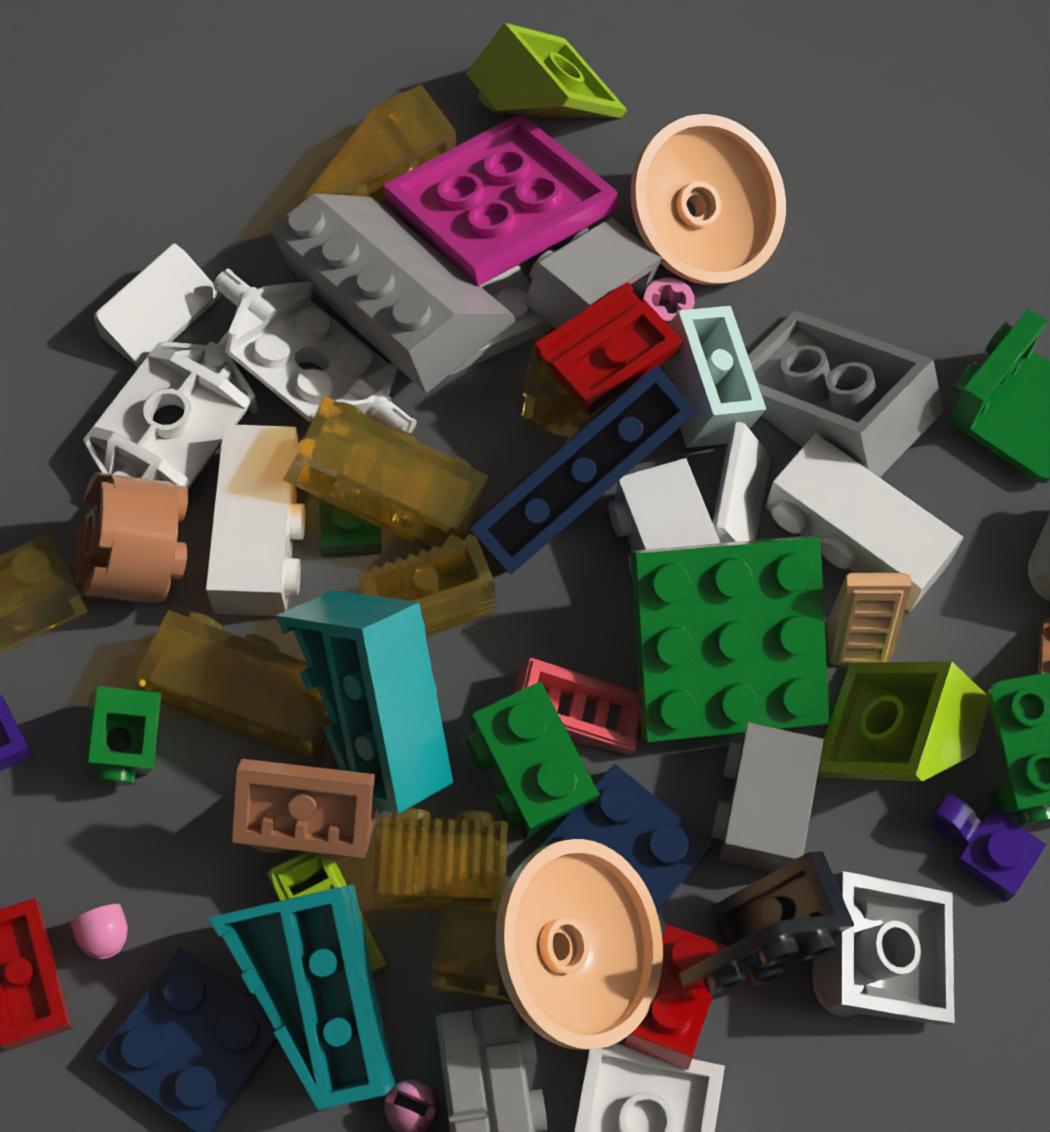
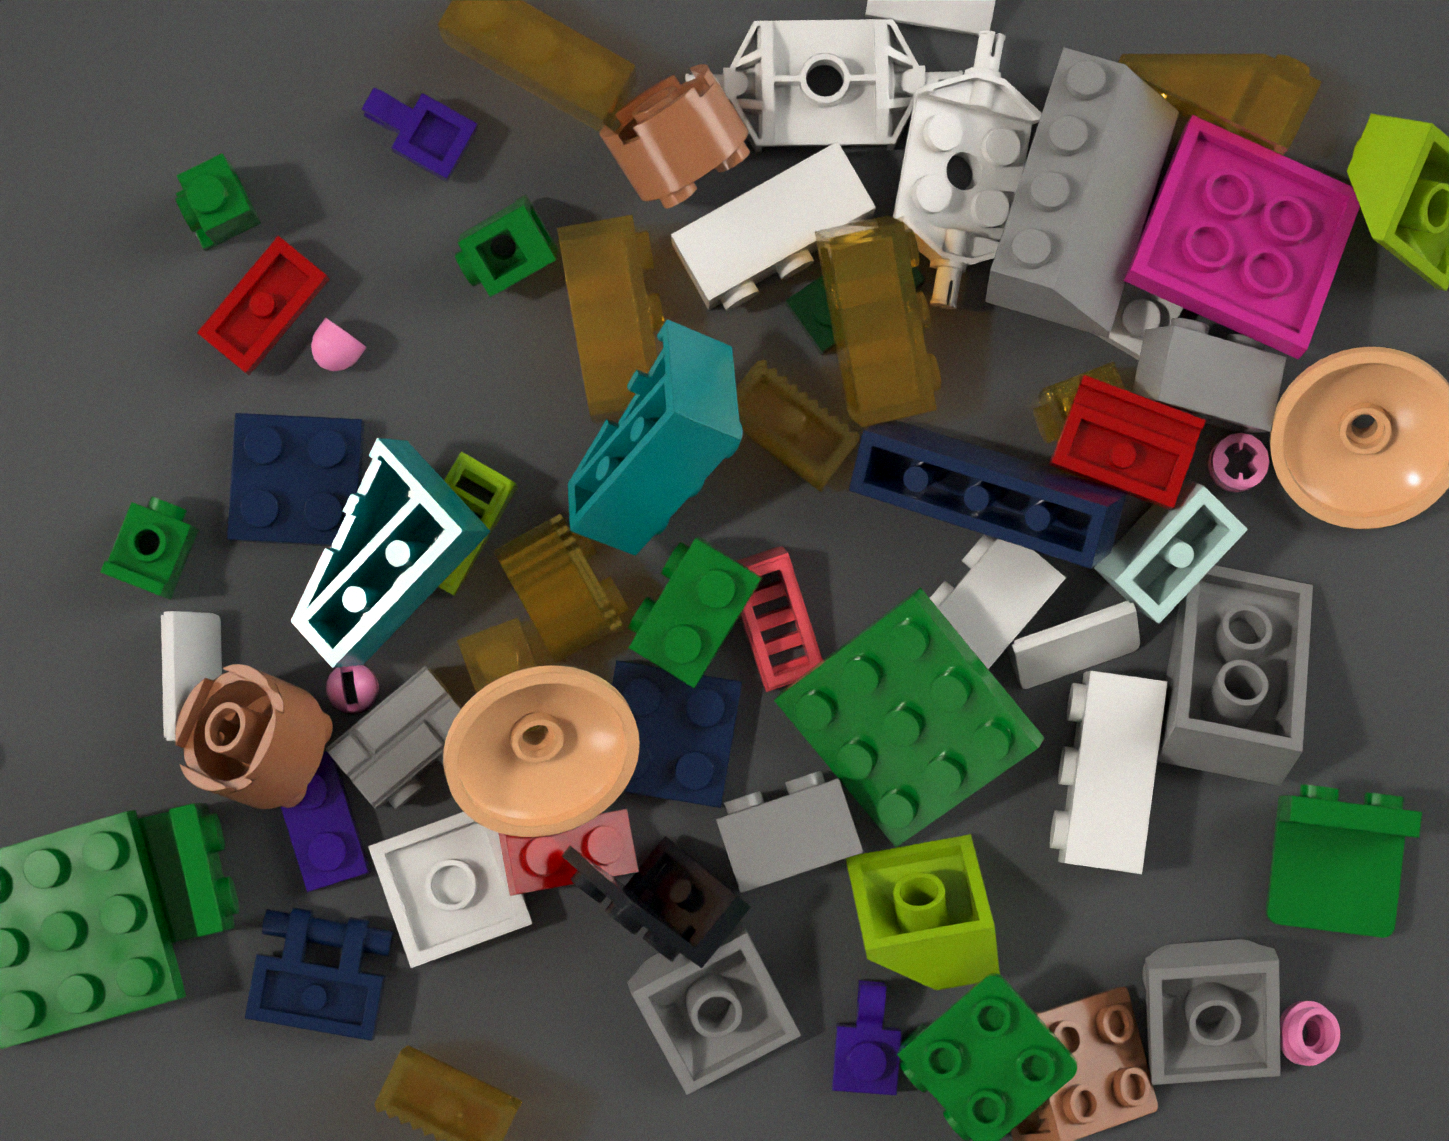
camera: 60 degrees right, 20 degrees up
(303, 809) = (523, 449): nougat bracket -> none
(867, 617) = (1004, 830): light nougat slope -> none

